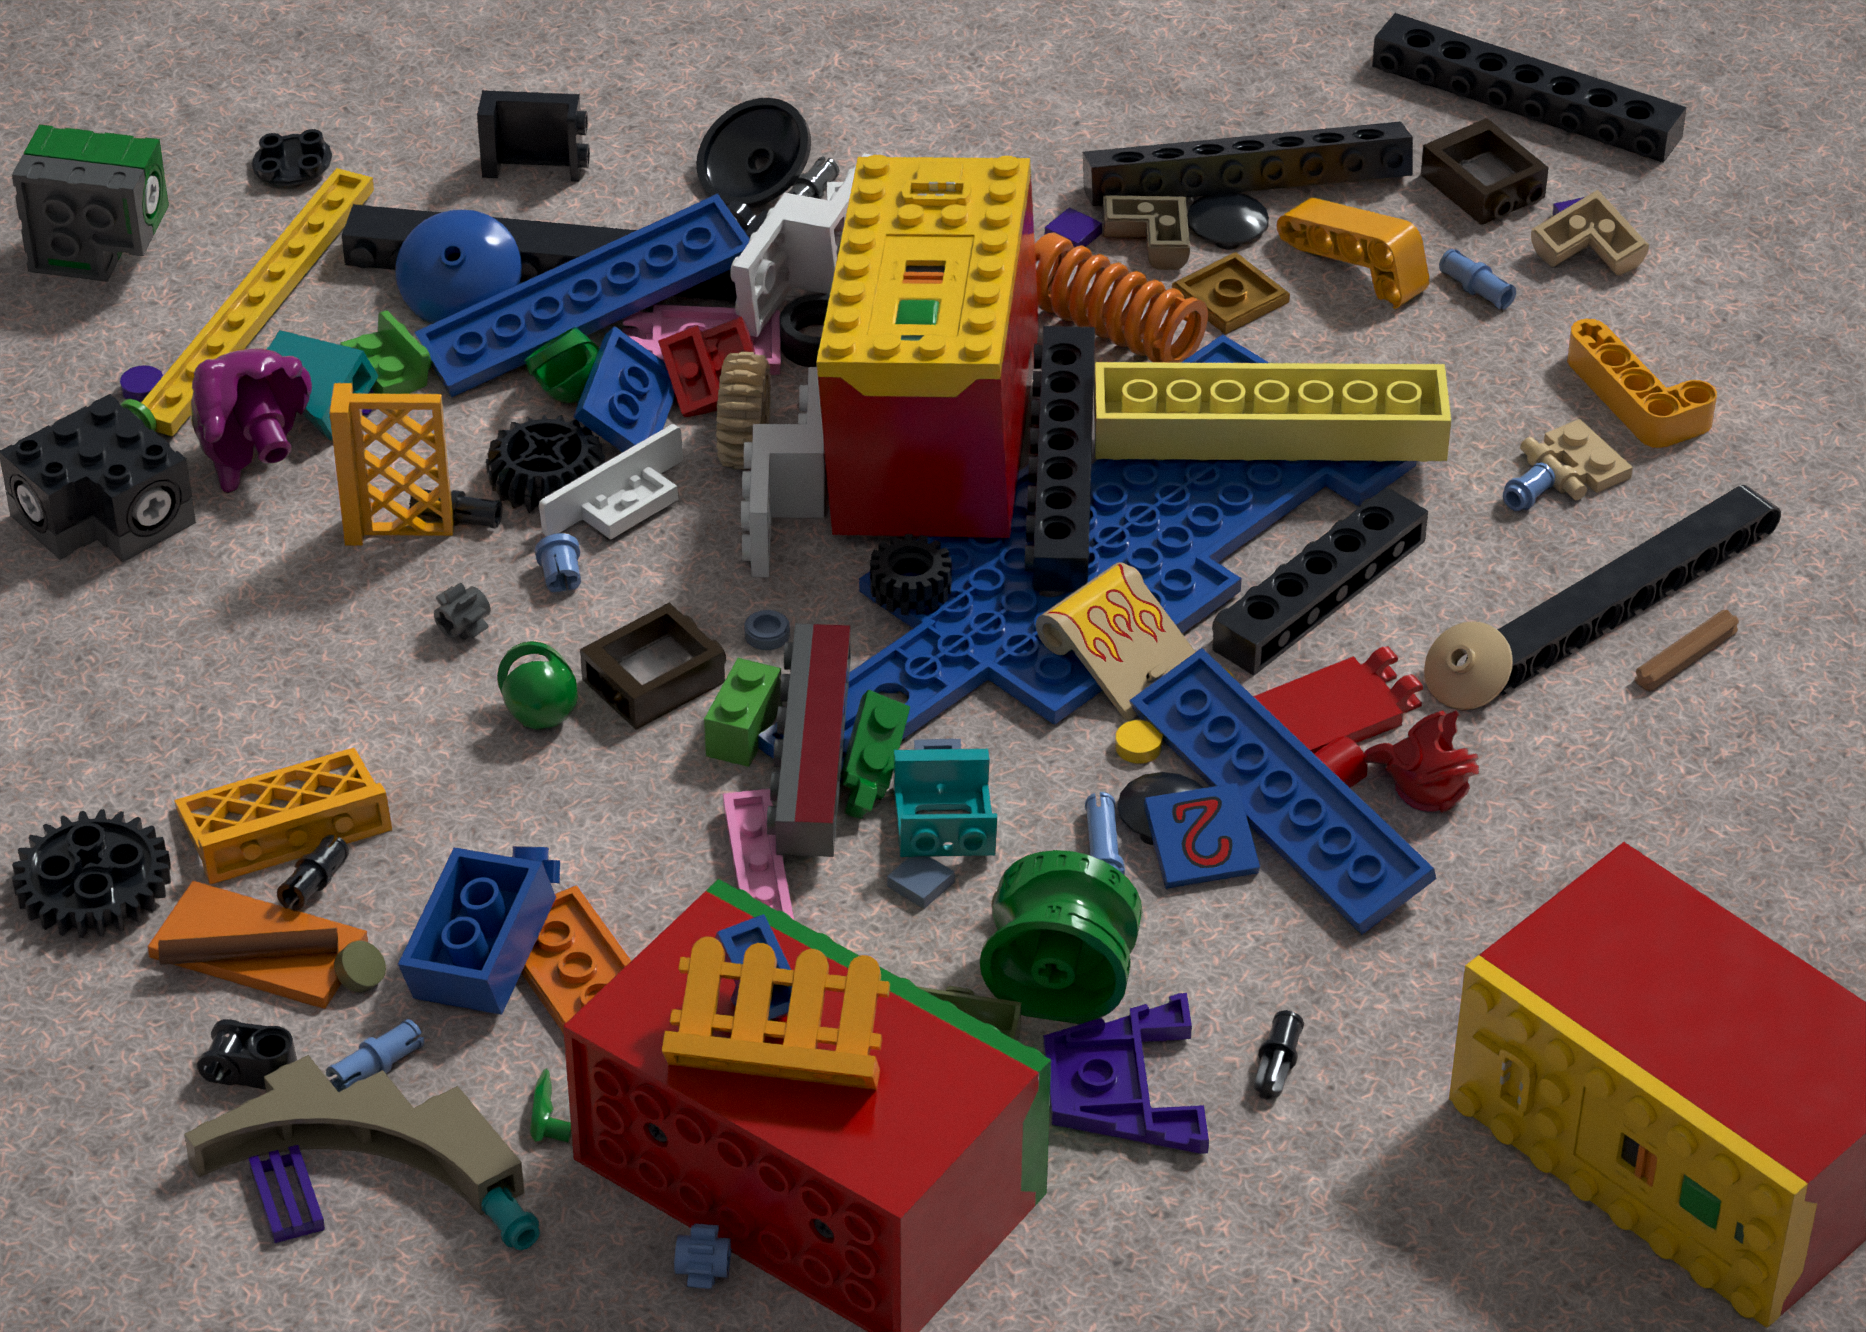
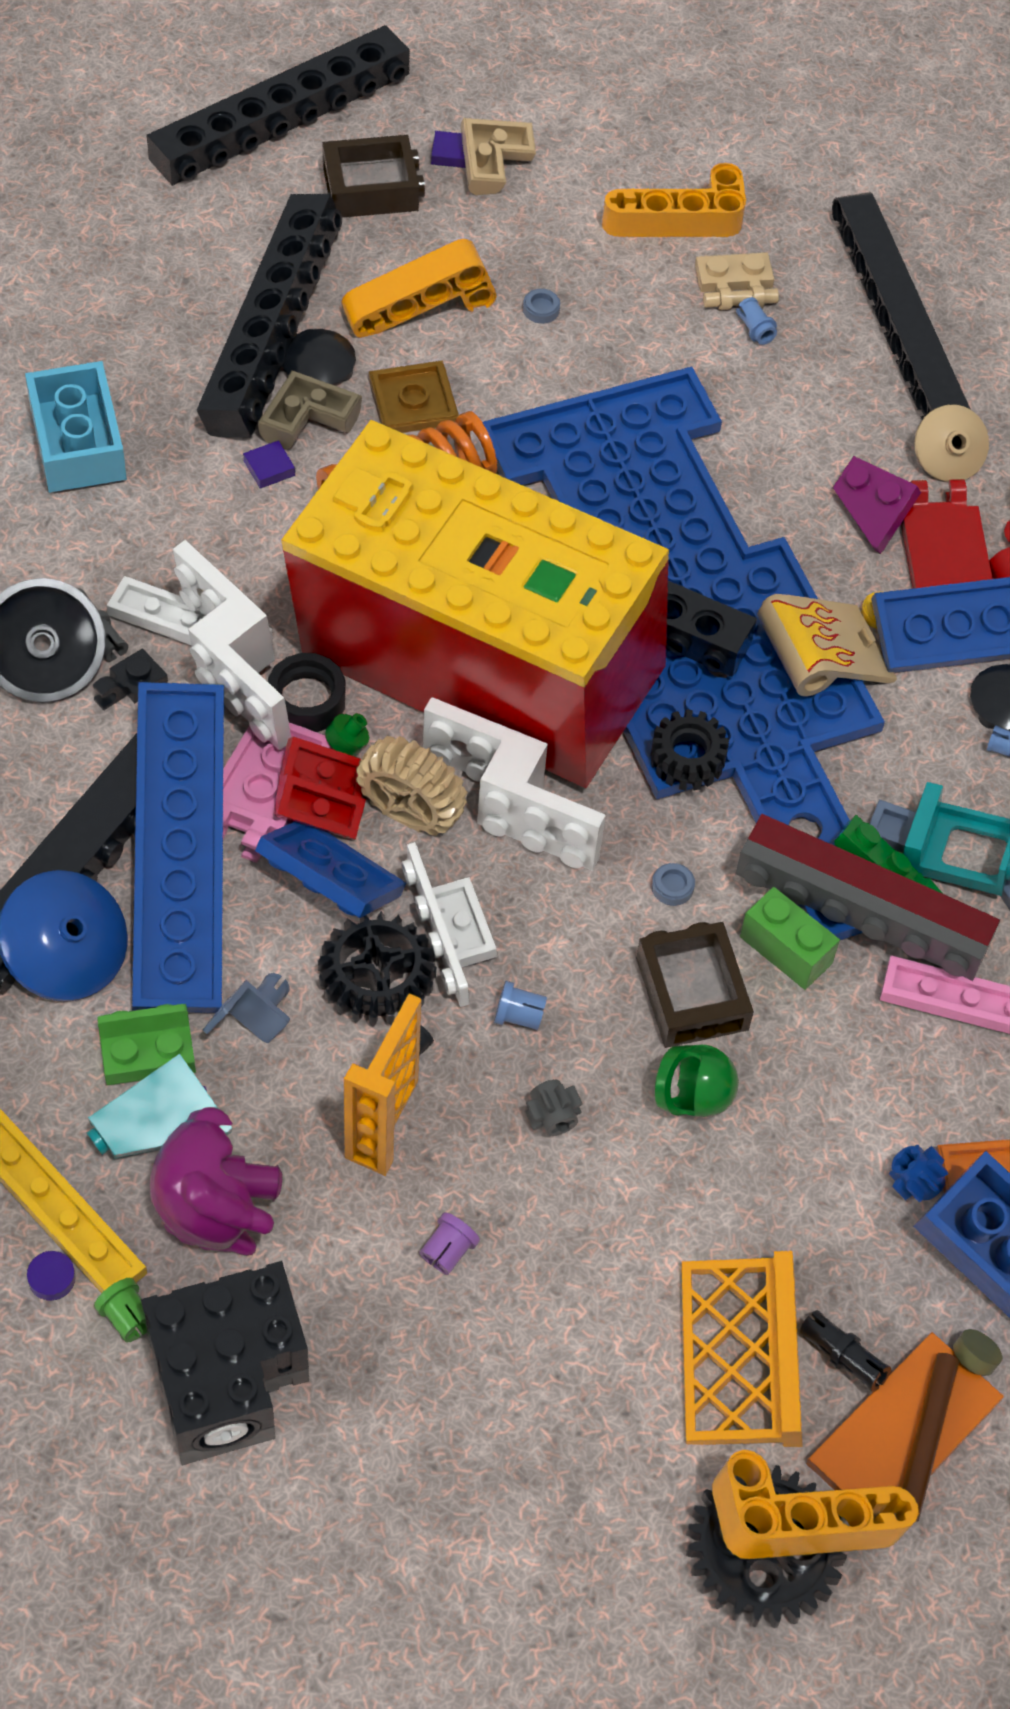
camera: 70 degrees left, 15 degrees up
(100, 831) = (875, 1514): none -> light orange beam
(290, 592) = (452, 1235): none -> medium lavender bush
(457, 402) = (256, 1008): none -> sand blue bracket
(564, 365) = (260, 899): green helmet -> none
(789, 369) = (348, 733): none -> green tile
(1009, 94) = (76, 426): none -> medium azure brick
(1138, 742) = (928, 684): yellow tile -> none
(1271, 411) = (636, 411): light yellow brick -> none
(1319, 580) = (808, 491): black brick -> none
(1345, 634) = (875, 500): none -> magenta wing
(1422, 338) = (541, 306): none -> sand blue tile
(1477, 278) = (500, 239): medium blue pin -> none
(1686, 650) = (977, 316): medium nougat axle -> none

